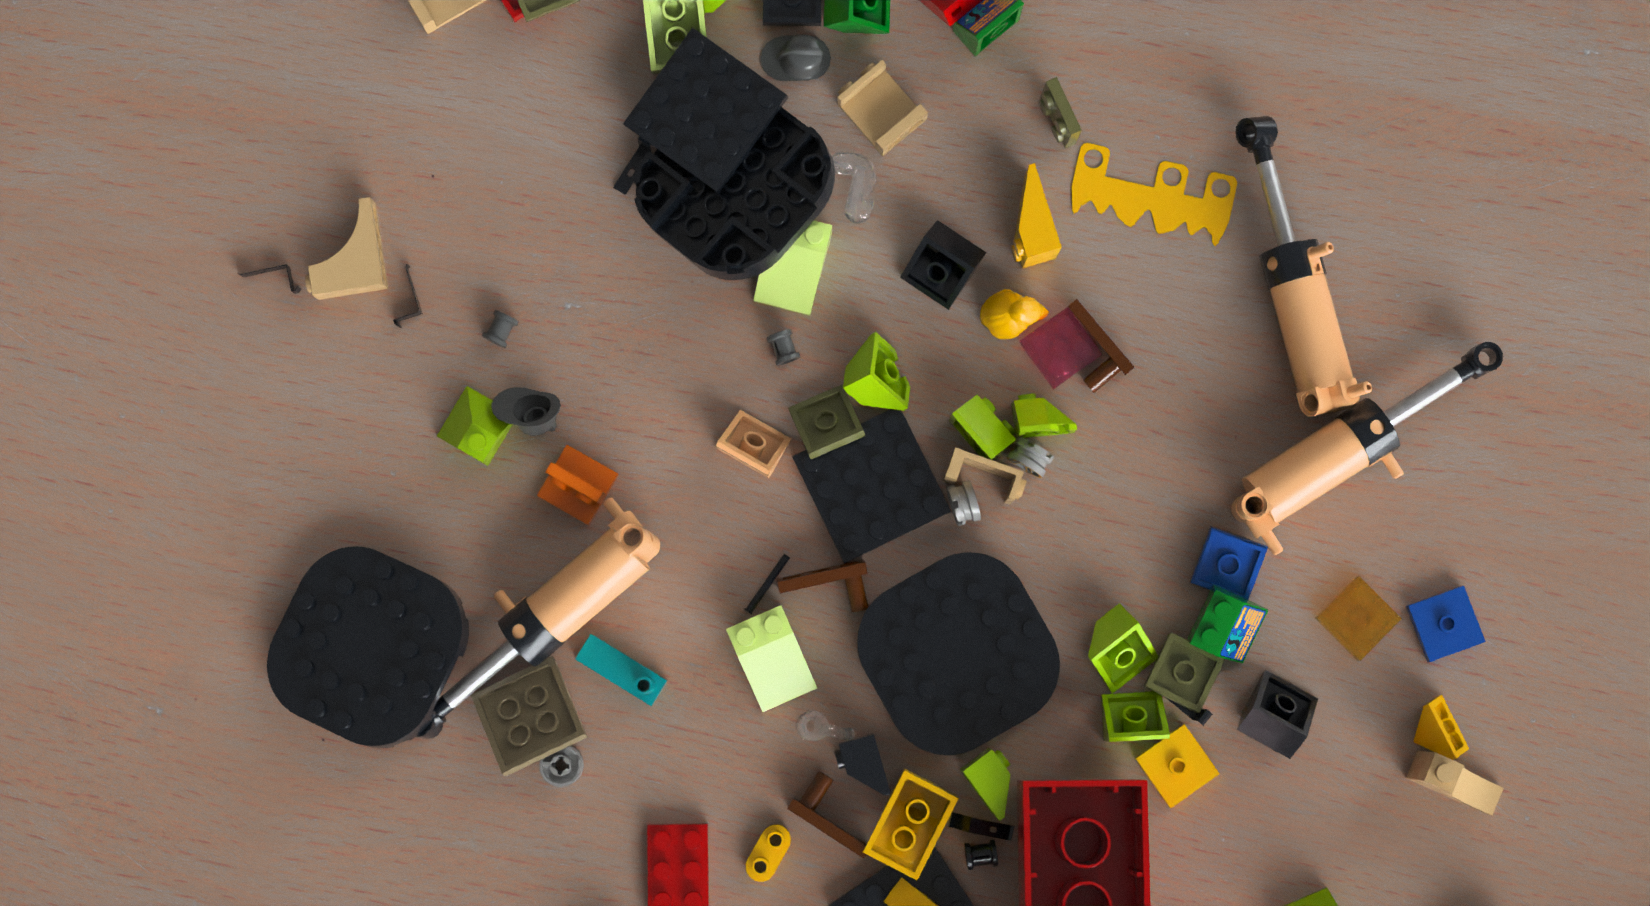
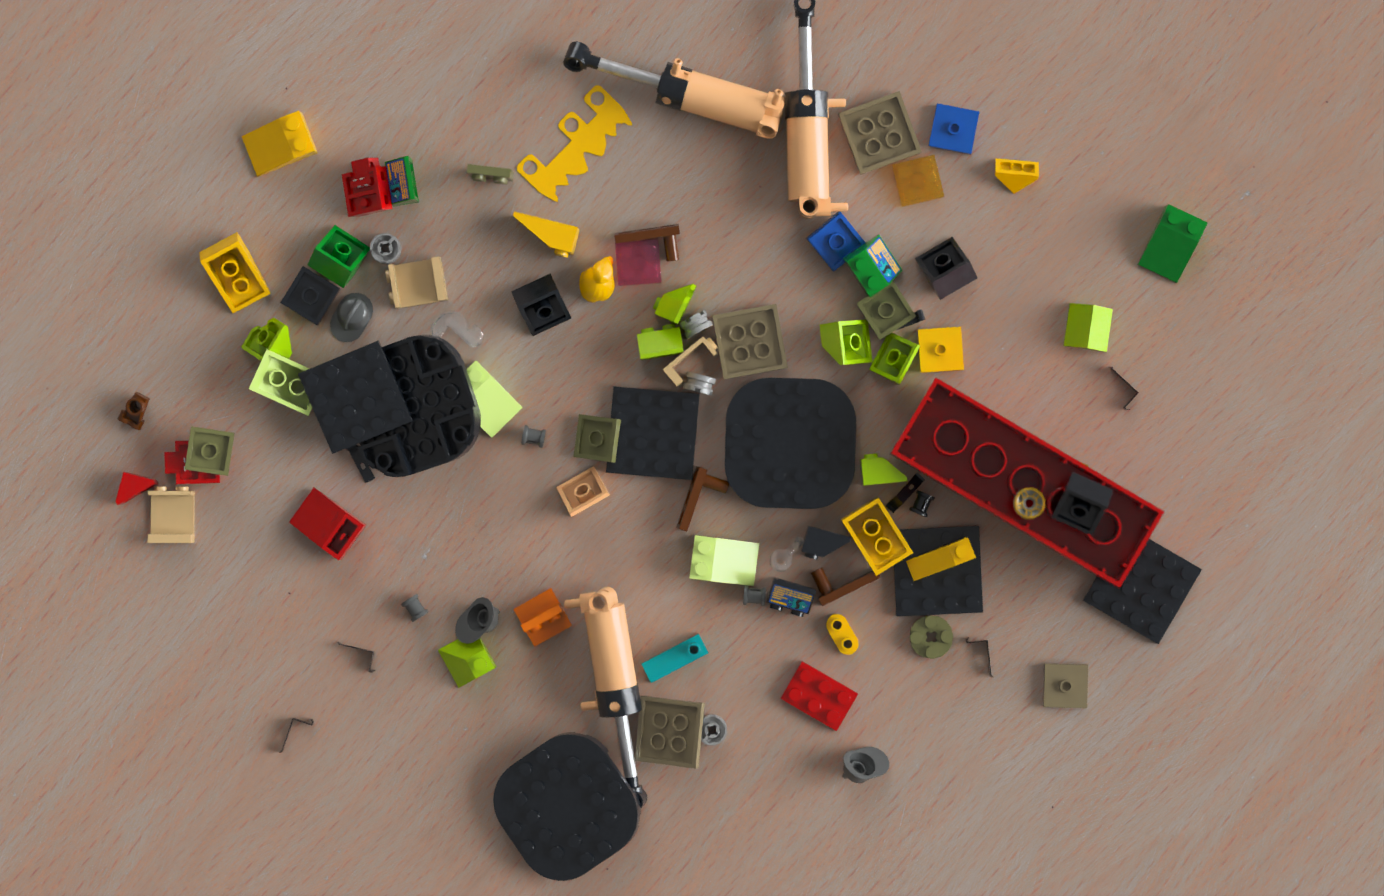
camera: 65 degrees left, 5 degrees up
(357, 266) = (320, 675): tan arch -> none
(538, 171) = (327, 524): none -> red slope
(751, 720) = (754, 595): none -> dark grey bush
(766, 585) = (675, 535): black piece -> none
(776, 763) = (790, 596): none -> slope
(874, 377) = (586, 390): lime slope -> none
(907, 57) = (394, 247): none -> light grey wheel
(1048, 533) = (750, 341): none -> dark tan plate
(1387, 539) = (879, 133): none -> dark tan plate
(1454, 781) = (1053, 184): tan arch -> none

